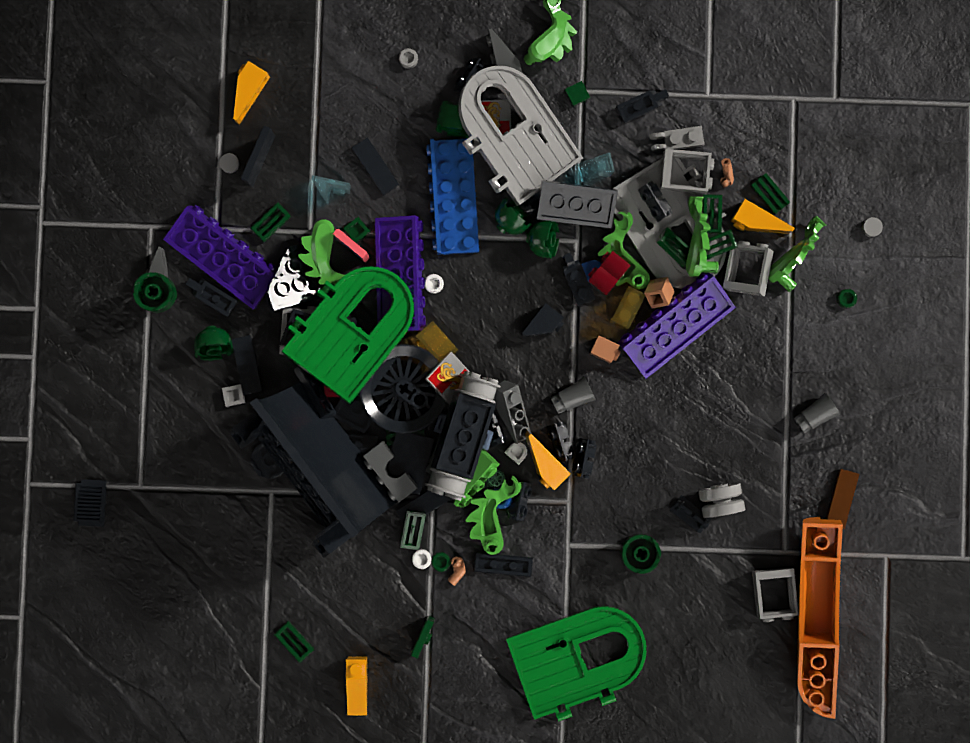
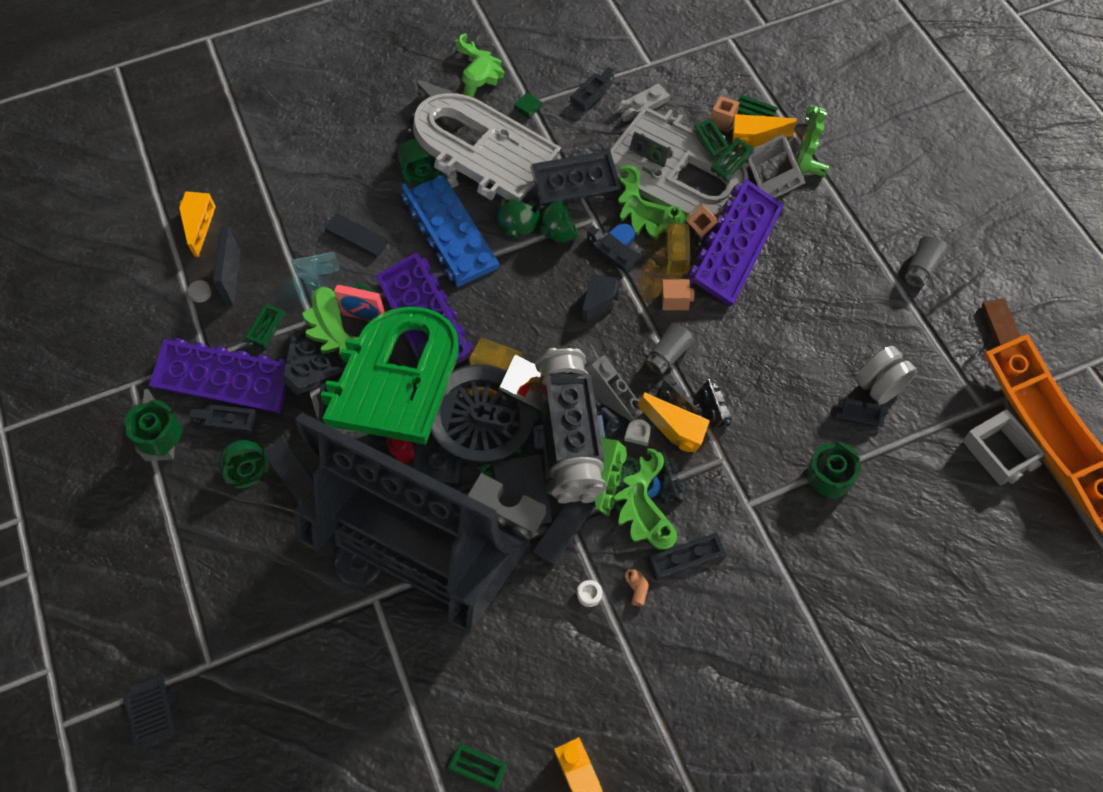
camera: 20 degrees left, 25 degrees down
(233, 395) = (285, 510): light grey tile -> none
(408, 58) = (349, 139): light grey tile -> none
(415, 514) = (553, 563): dark green tile -> none
(424, 637) = (638, 676): dark green plate -> none
(434, 283) = (466, 311): white tile -> none
(441, 561) = (613, 586): dark green tile -> none
(559, 673) = (822, 650): green door -> none
(596, 167) = (581, 143): clear light blue slope -> none
(609, 272) = (641, 222): dark red brick -> none
(666, 170) = (662, 98): light grey window -> none
(673, 245) = (692, 179): dark green tile -> none
(697, 254) = (717, 161): bright green animal -> none
(728, 178) = (704, 106): nougat arm -> none
(737, 192) = (724, 113): none -> nougat brick
(846, 298) = (883, 161): dark green tile -> none
(872, 227) = (865, 98): light grey tile -> none

